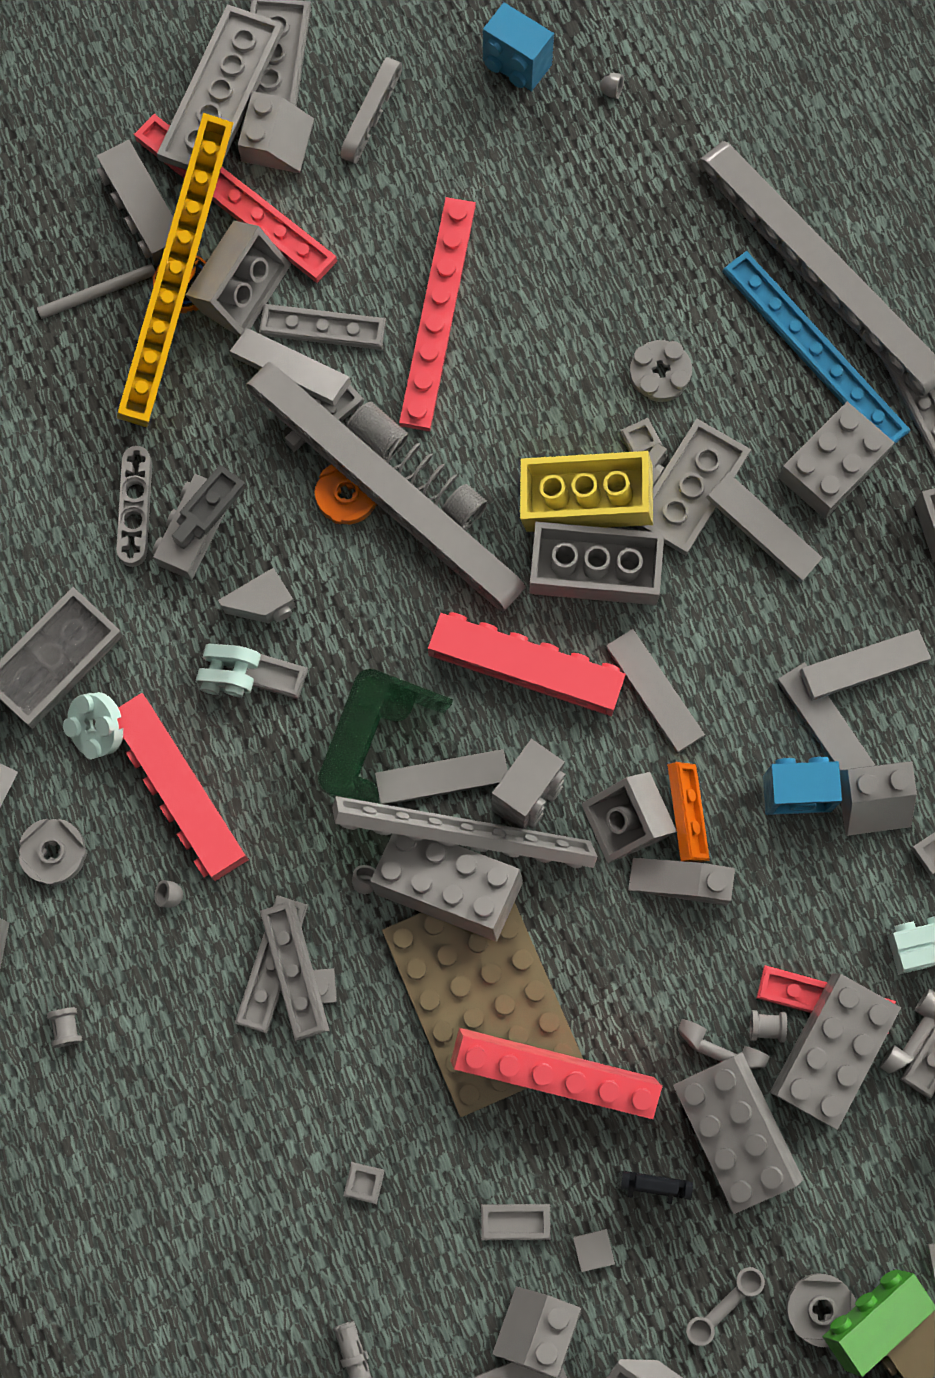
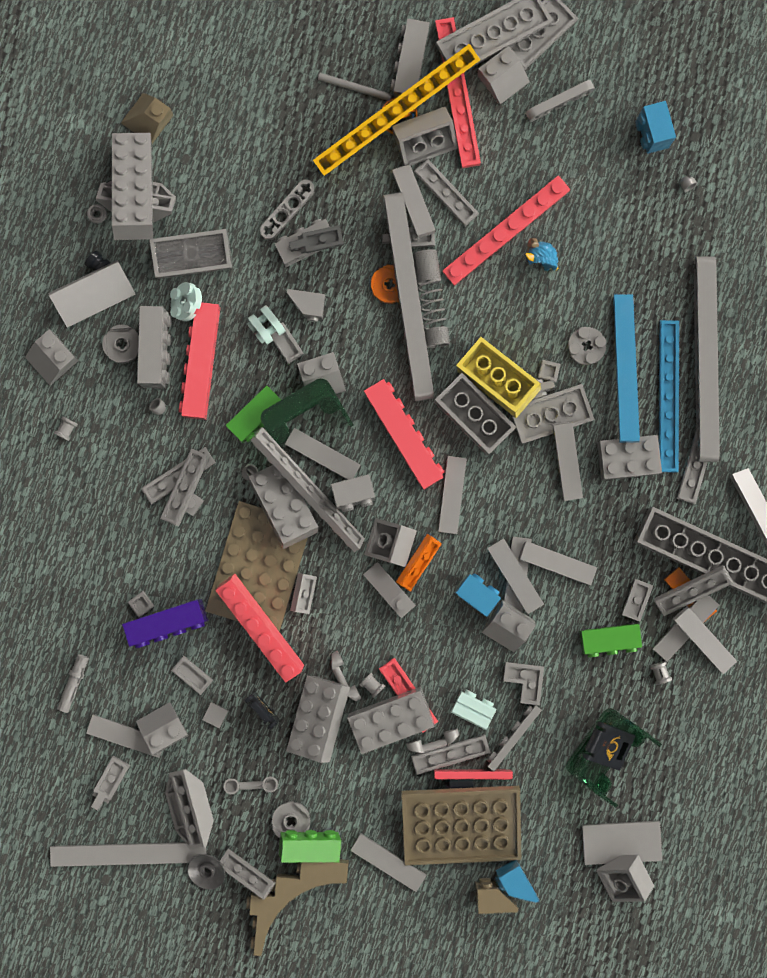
camera: 35 degrees right, 10 degrees up
(95, 814) = (153, 347): none -> light grey brick
(306, 803) = (249, 418): none -> bright green brick
(345, 663) = (322, 367): none -> light grey slope
(420, 1176) = (165, 622): none -> dark purple brick
(510, 299) = (542, 253): none -> dark azure hair
(572, 980) = (303, 593): none -> light grey plate
(737, 355) = (626, 369): none -> dark azure tile
(827, 725) = (515, 576): none -> light grey tile

